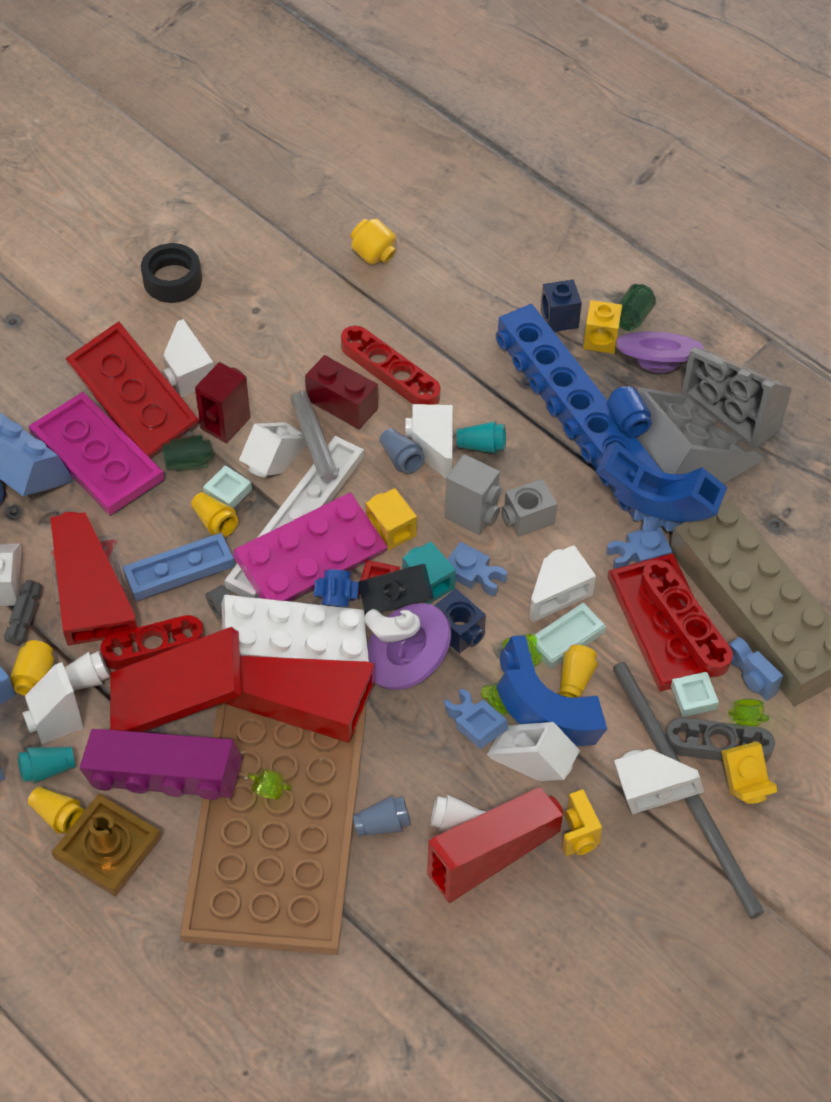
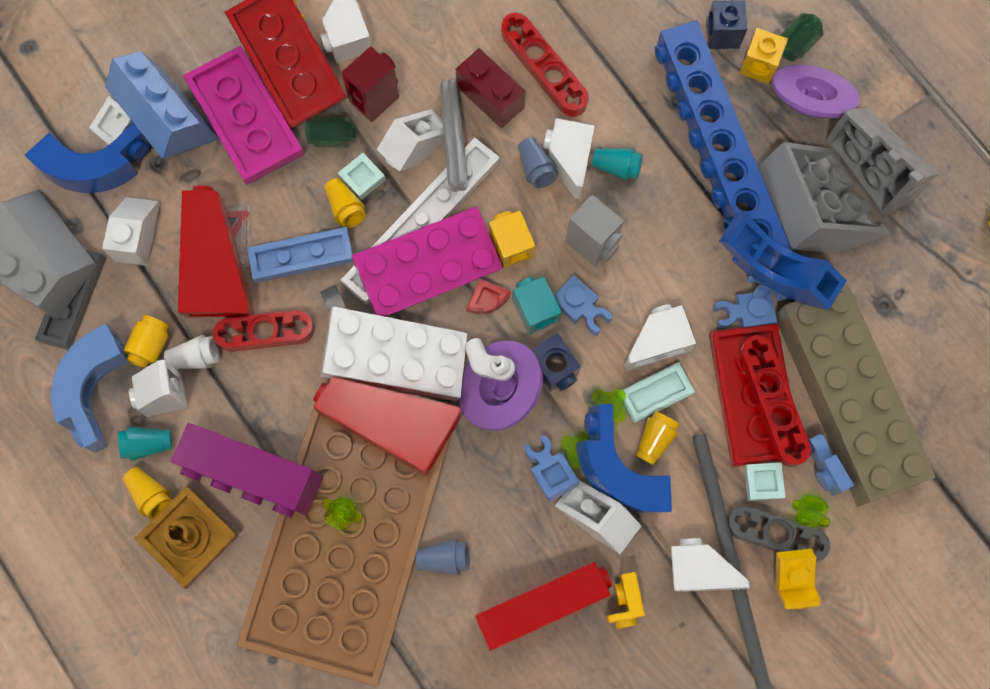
camera: 10 degrees right, 20 degrees up
(23, 612) = (148, 277): dark grey axle -> none
(176, 683) = (273, 391): red tile -> none
(336, 588) = (443, 310): blue gear -> none
(396, 589) = (500, 322): black plate -> none
(451, 812) = (513, 569): white cone -> none
(529, 508) = (654, 238): light grey brick -> none
(629, 411) = (768, 167): blue brick -> none

